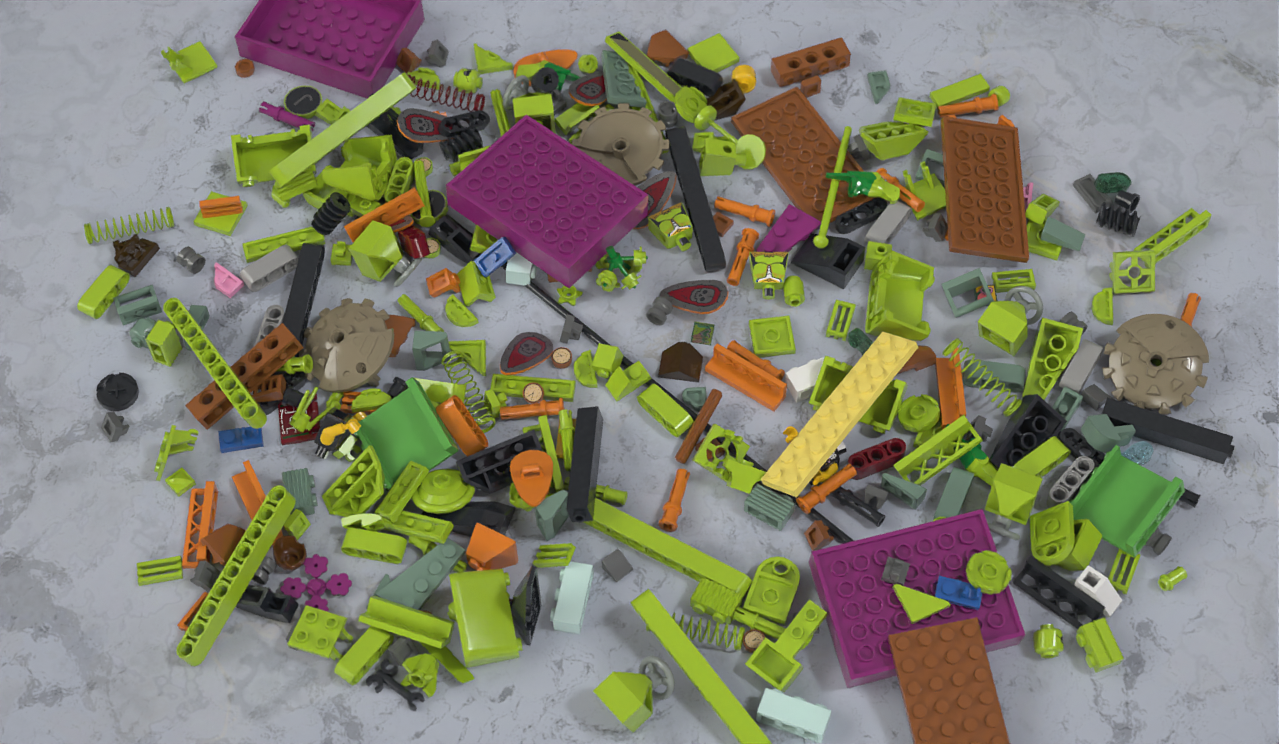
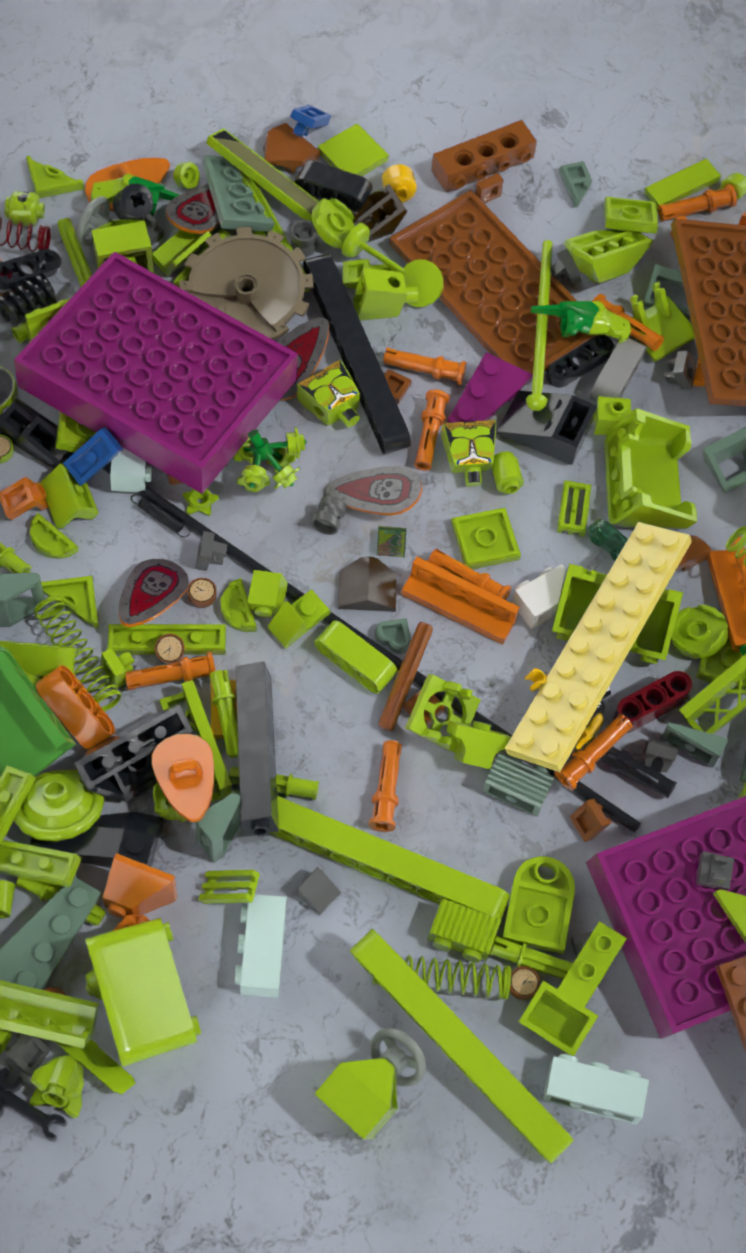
camera: 15 degrees left, 5 degrees up
(526, 605) = (198, 969): black wedge -> none
(539, 302) = (160, 515): none -> black piece
(682, 27) = (308, 118): none -> blue plate

